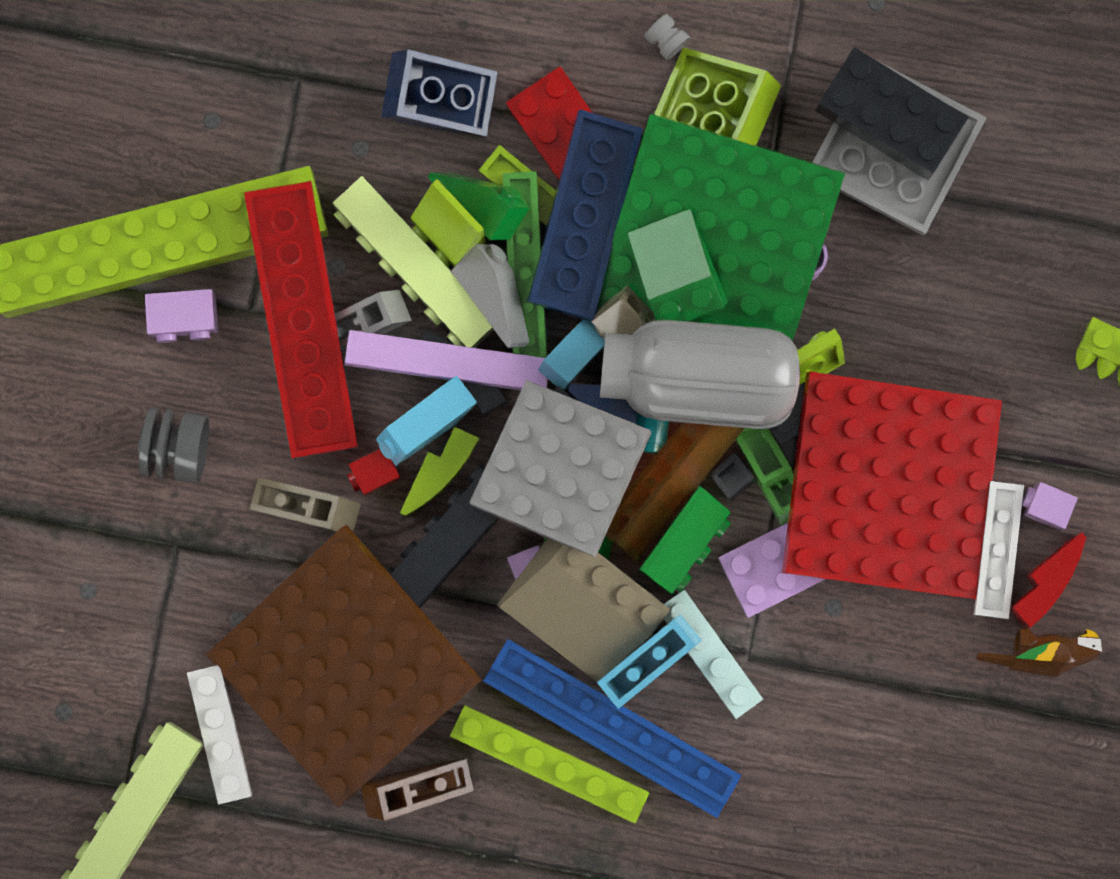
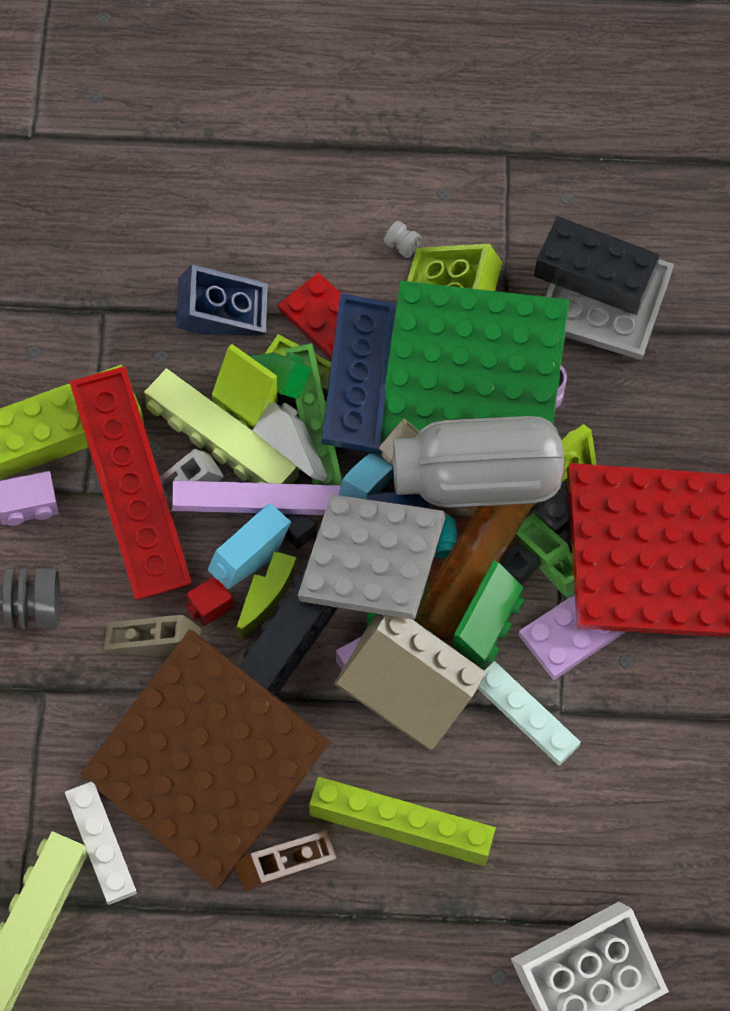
camera: 10 degrees left, 20 degrees down
(612, 729) = (452, 785): blue plate -> none
(649, 661) = (475, 717): medium azure brick -> none
(676, 268) = (442, 390): slope -> none

